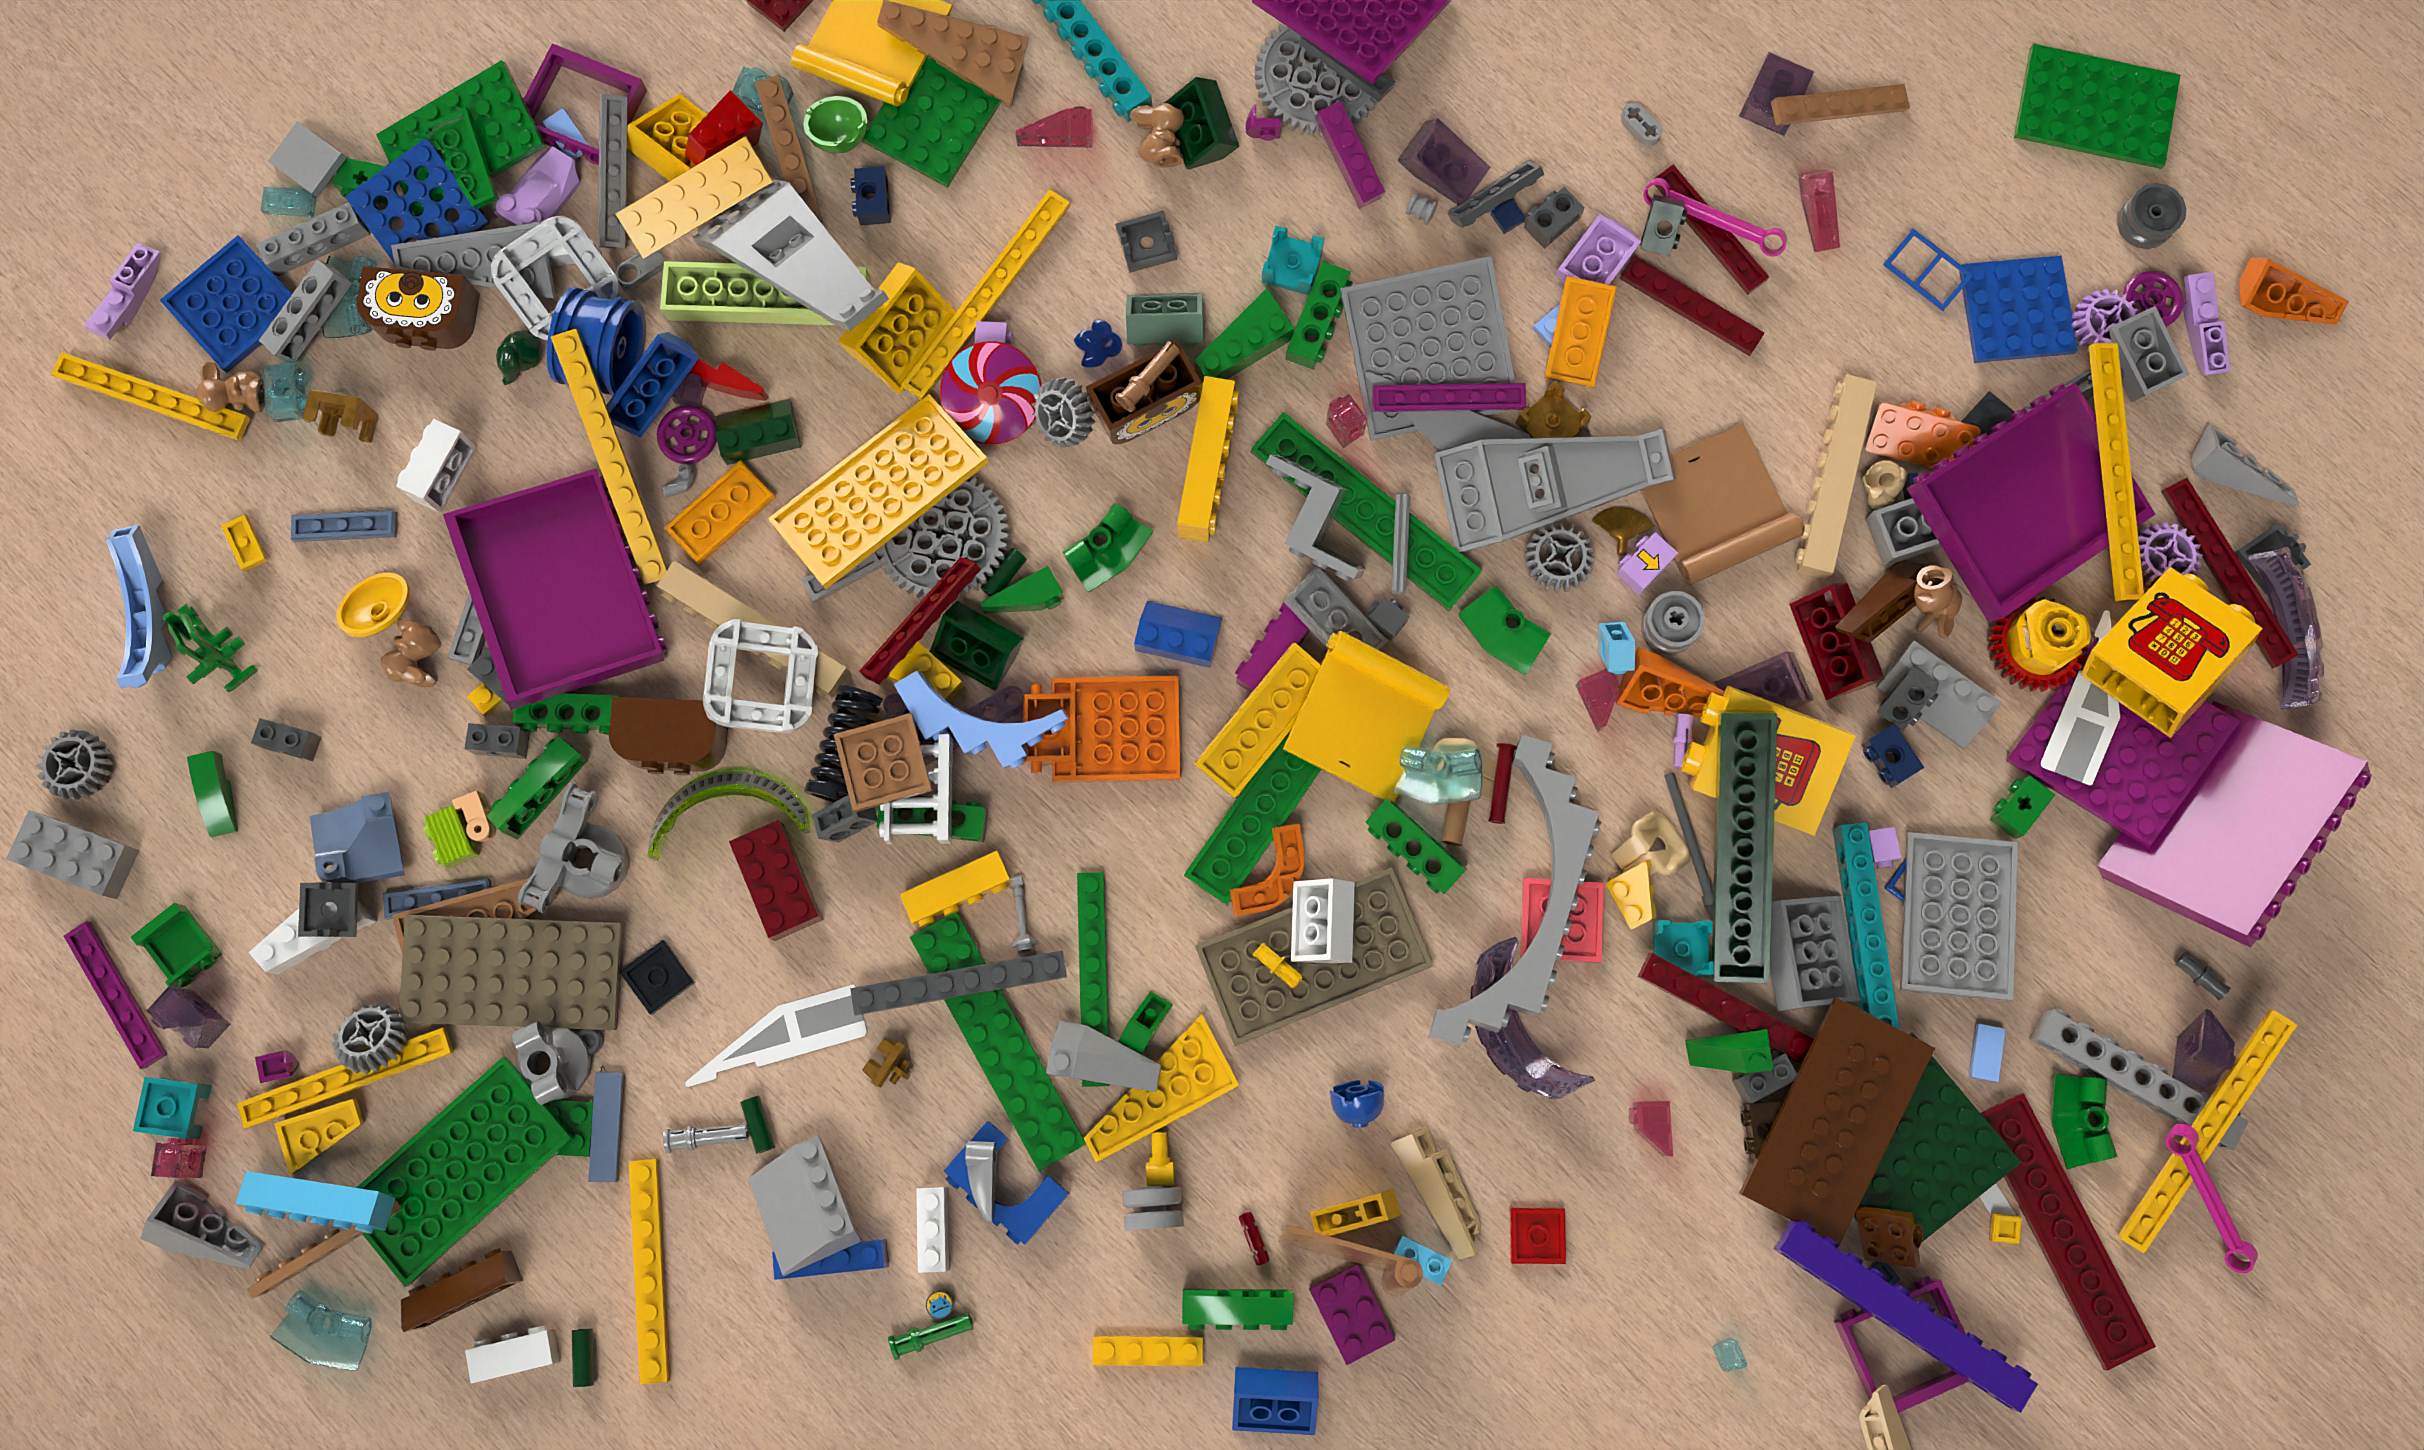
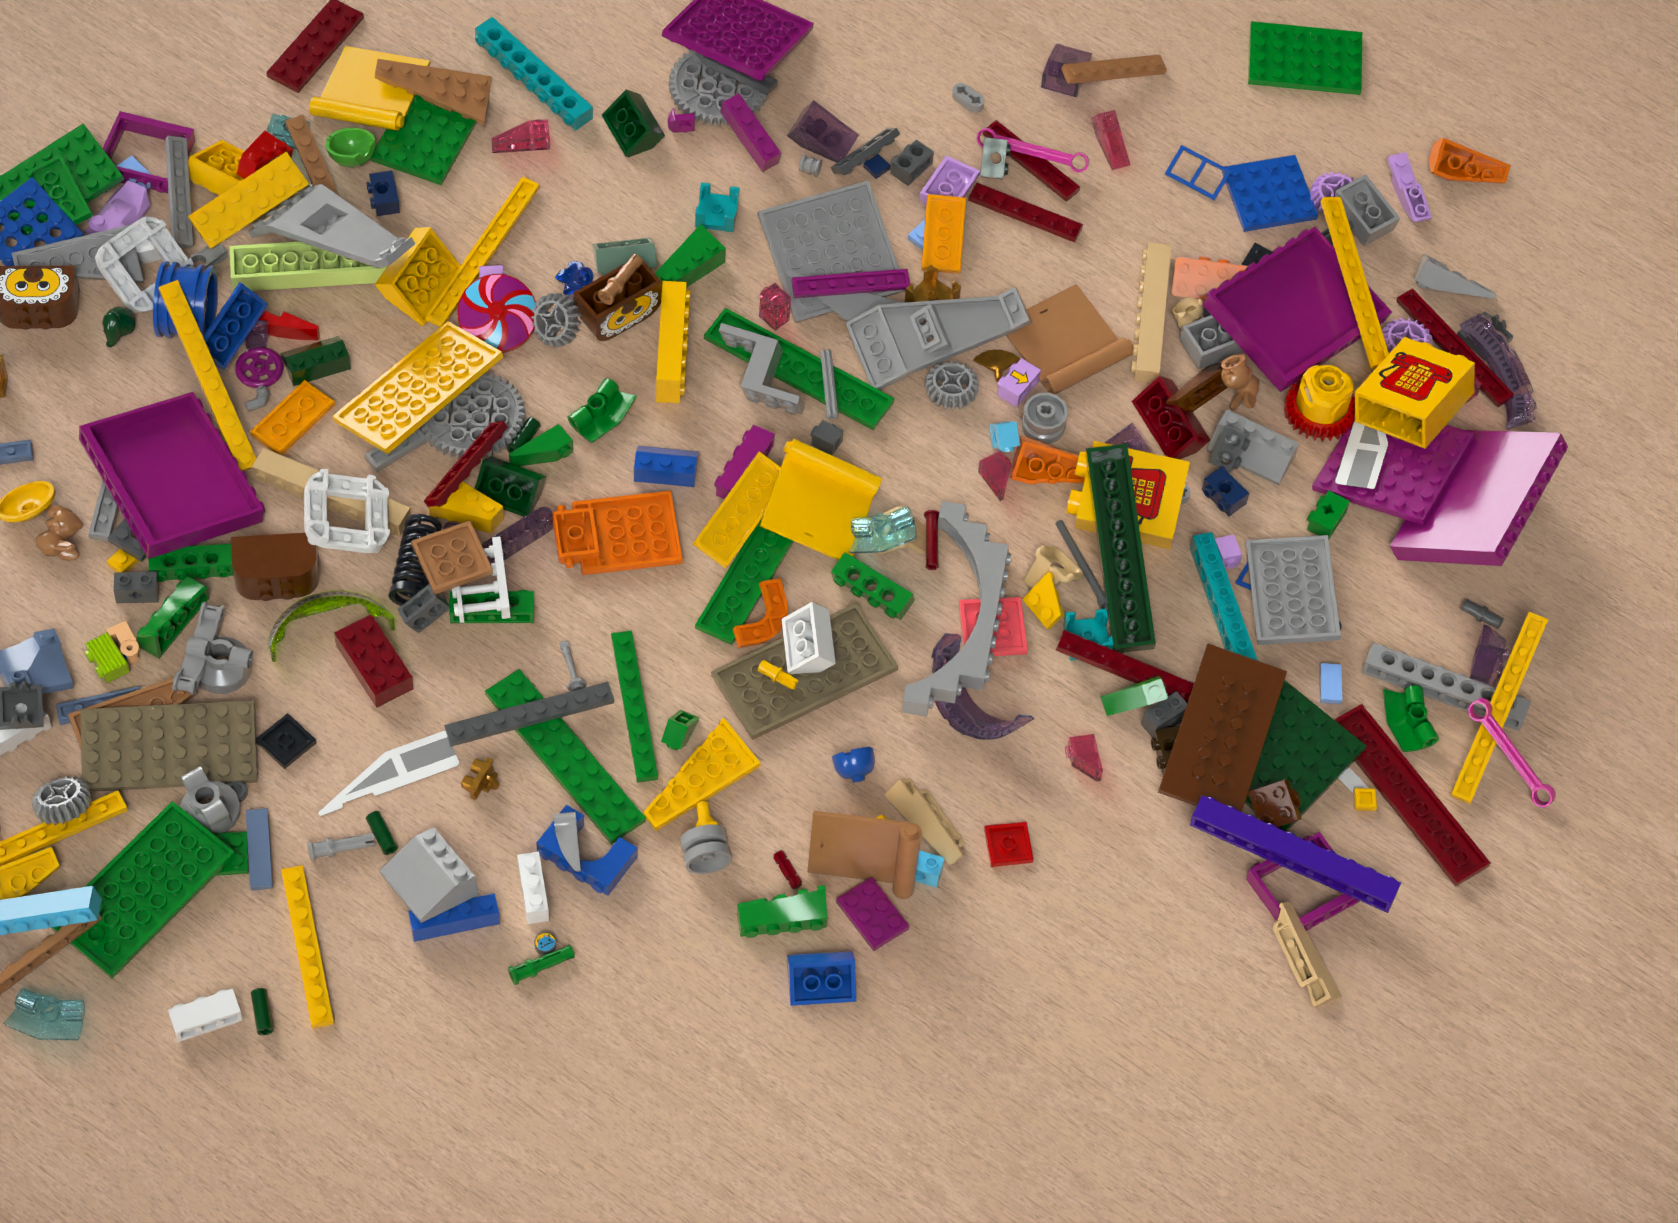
camera: 15 degrees left, 20 degrees down
(436, 465) = (64, 401): white brick -> none
(460, 1290) = (158, 972): reddish brown slope -> none
(936, 715) = (518, 536): light blue arch -> none
(956, 888) = (517, 652): yellow brick -> none
(1093, 1057) = (645, 754): light grey wedge -> none
(1148, 1350) = (715, 957): yellow plate -> none
(1151, 226) = (603, 195): dark grey piece -> none
(1161, 143) = (604, 139): medium nougat animal -> none
(1309, 353) = (742, 243): green brick -> none
(1328, 610) = (777, 429): light grey tile -> none
(1455, 823) = (900, 566): medium nougat piece -> none
(1488, 625) = (905, 433): green panel -> none
(1683, 737) = (1063, 497): lavender pin -> none
(1729, 1355) = (1169, 907): clear light blue slope -> none
(1811, 953) = (1182, 626): light grey slope -> none
(2151, 216) = (1356, 122): dark grey wheel -> none
(2171, 290) = (1380, 170): magenta plate -> none

